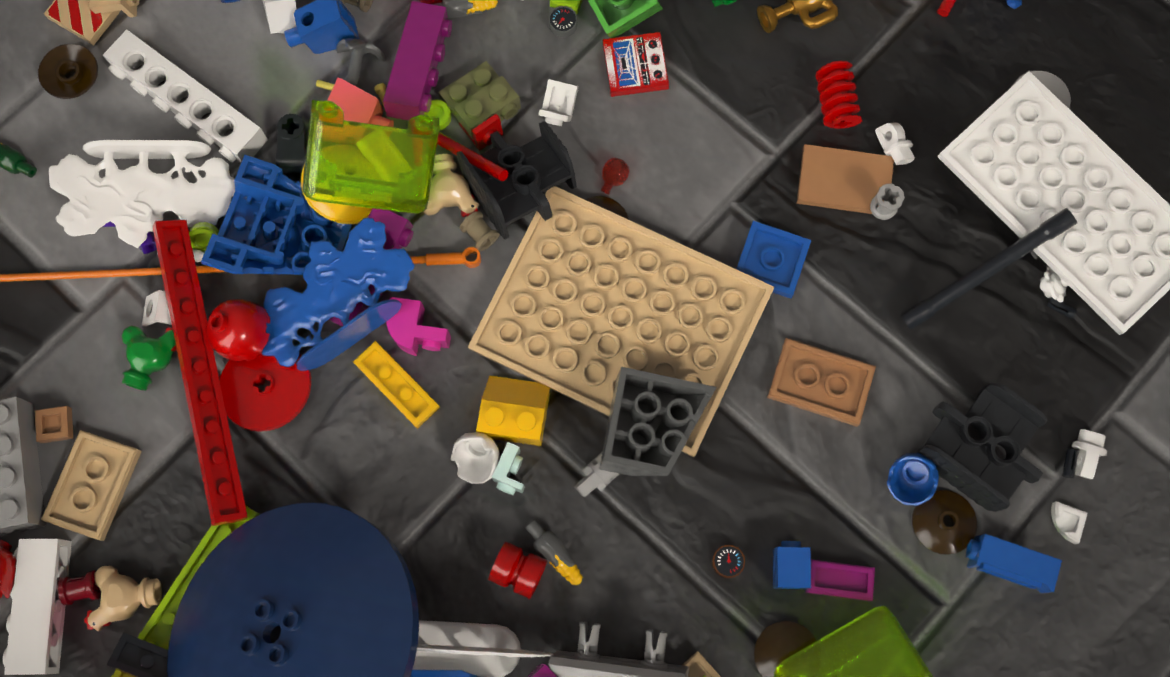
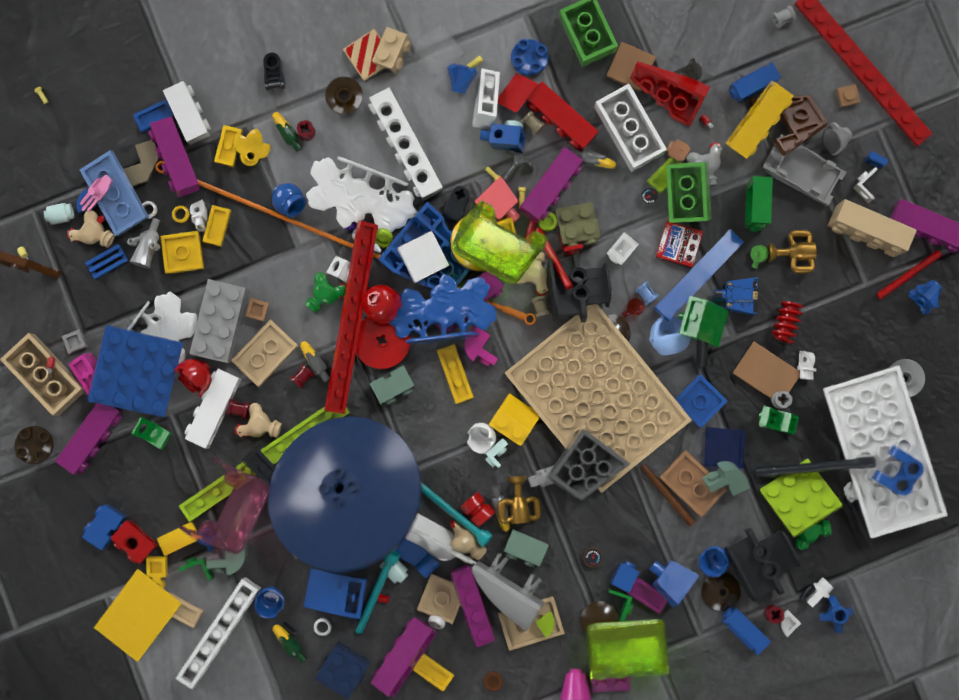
camera: 20 degrees right, 10 degrees up
(30, 140) = (306, 124): none -> dark red bush
(38, 244) = (288, 199): none -> blue piece
(161, 492) = (302, 376): none -> dark red bush
(174, 462) = (314, 361): none -> dark grey piece
(268, 231) = (422, 256): none -> white tile
(308, 443) = (389, 388): none -> sand green brick
(523, 627) = (466, 542): none -> tan animal
(543, 607) = (482, 536): none -> teal piece
(580, 535) = (518, 505): none -> pearl gold piece
(620, 594) = (525, 547): none -> sand green brick
(621, 146) = (646, 293): none -> medium blue bush
(682, 90) = (698, 275): none -> tile
(683, 185) = (666, 336): none -> light blue piece
(723, 146) = (705, 324): none -> green piece
(752, 28) = (759, 254): none -> bright green piece
(754, 92) = (739, 296): none -> blue torso
(793, 415) = (666, 493): none -> reddish brown bar
(818, 612) = (627, 607): none -> green bracket
(840, 310) = (724, 446): none -> clear blue tile
(867, 539) = (673, 581): none -> blue torso
(870, 345) = (728, 476): none -> sand green brick
(897, 234) = (778, 420): none -> green brick
(990, 330) = (800, 500): none -> lime plate
(1023, 368) = (811, 534): none -> green animal
(1048, 511) = (779, 611): none -> dark red bush
(1113, 192) = (902, 474): none -> blue piece
(1132, 474) = (836, 614): none -> blue rock

